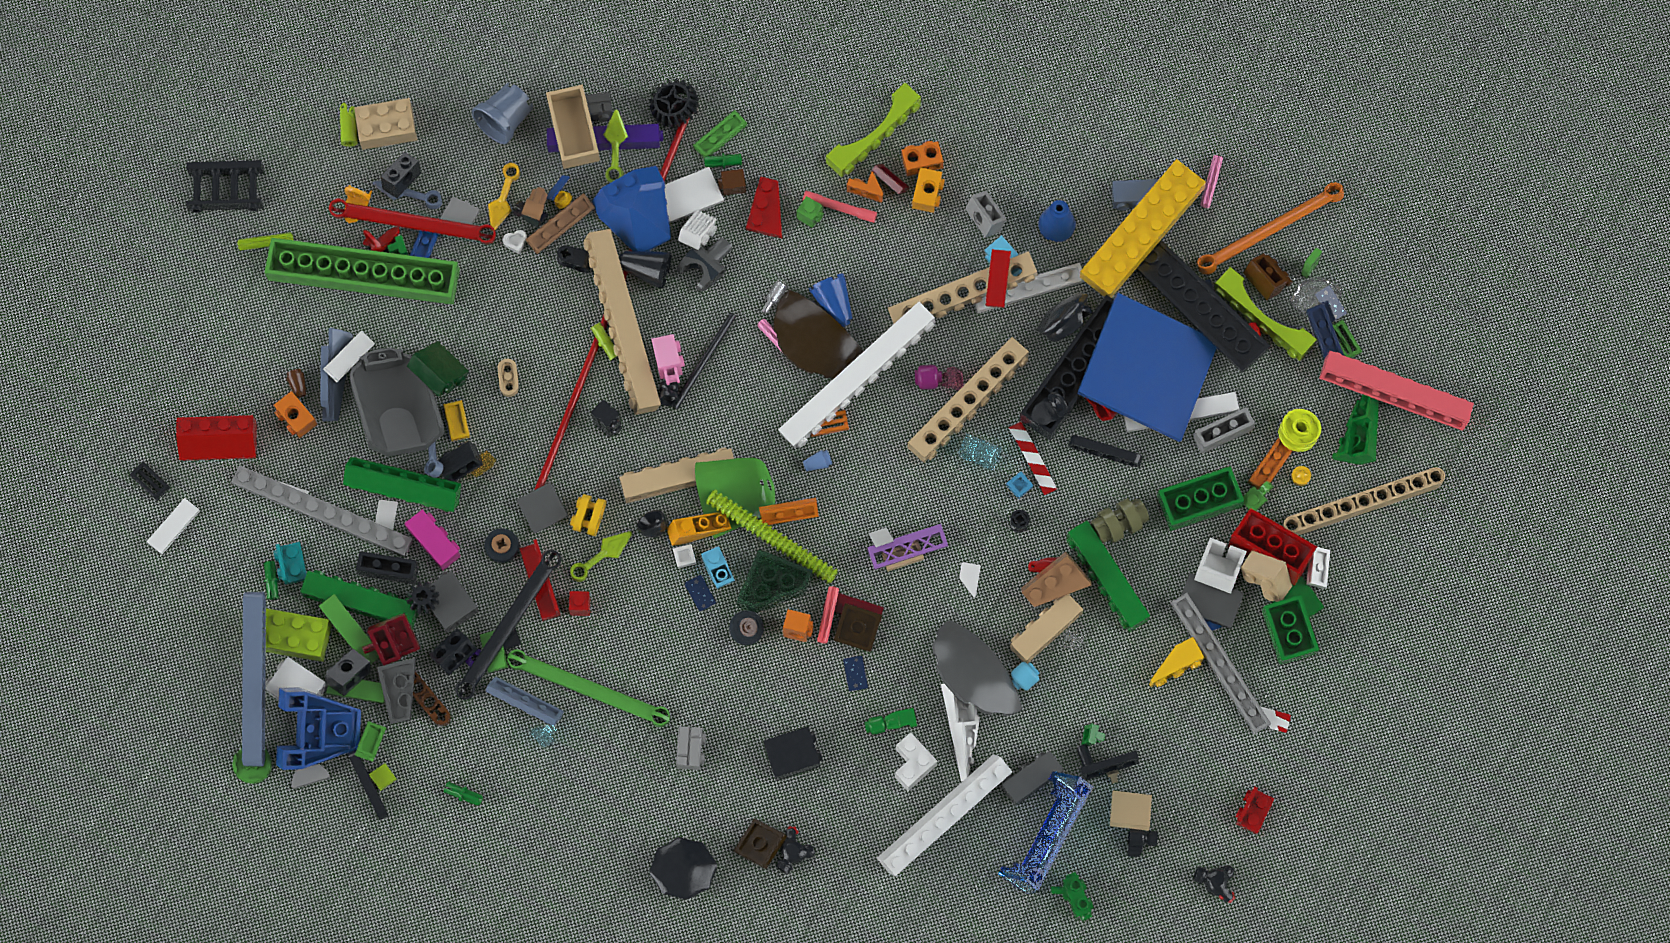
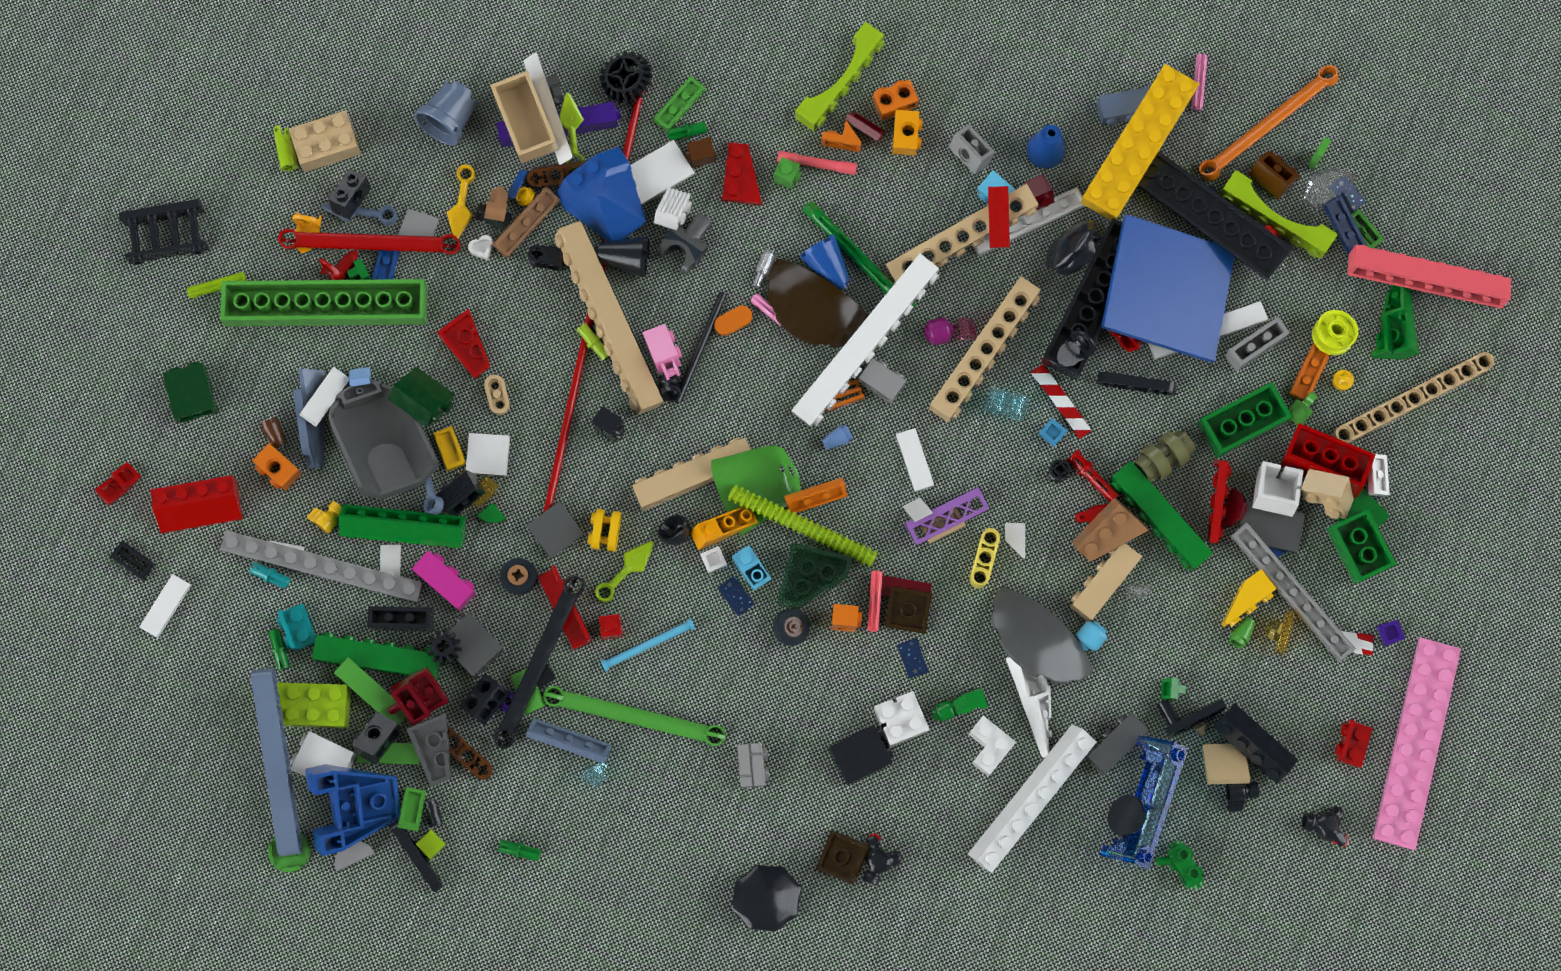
camera: 10 degrees left, 5 degrees up
(147, 410) = (120, 482): none -> red slope
(226, 335) = (190, 392): none -> dark green brick
(273, 512) = (269, 575): none -> teal axle
(331, 468) = (325, 519): none -> yellow piece
(384, 343) = (360, 376): none -> light blue tile
(389, 748) = (433, 813): none -> black pin
(485, 486) = (491, 515): none -> green tile
(486, 327) = (465, 344): none -> red wing
(491, 431) = (488, 454): none -> white tile
(594, 107) = (540, 84): none -> white sticker
(602, 178) = (540, 170): none -> reddish brown beam
(611, 625) = (647, 644): none -> medium azure bar
(738, 341) = (733, 320): none -> orange tile
(835, 725) = (902, 719): none -> white piece
(856, 288) = (848, 247): none -> green piece
(868, 415) = (882, 380): none -> light grey brick
(886, 492) = (914, 460): none -> white tile
(936, 582) = (988, 549): none -> light yellow beam
(1029, 843) = (1126, 815): none -> black tile
(1043, 262) = (1041, 190): none -> dark red brick
(1047, 521) = (1083, 471): none -> red pin
(1161, 795) = (1255, 743): none -> black brick
(1162, 577) = (1219, 479): none -> red wing
(1166, 694) = (1241, 634): none -> bright green cone
(1178, 580) = (1235, 508): none -> dark red tile
(1203, 698) = (1280, 631): none -> clear yellow tile
(1306, 714) = (1390, 632): none -> dark purple plate
(1314, 819) = (1416, 744): none -> bright pink plate

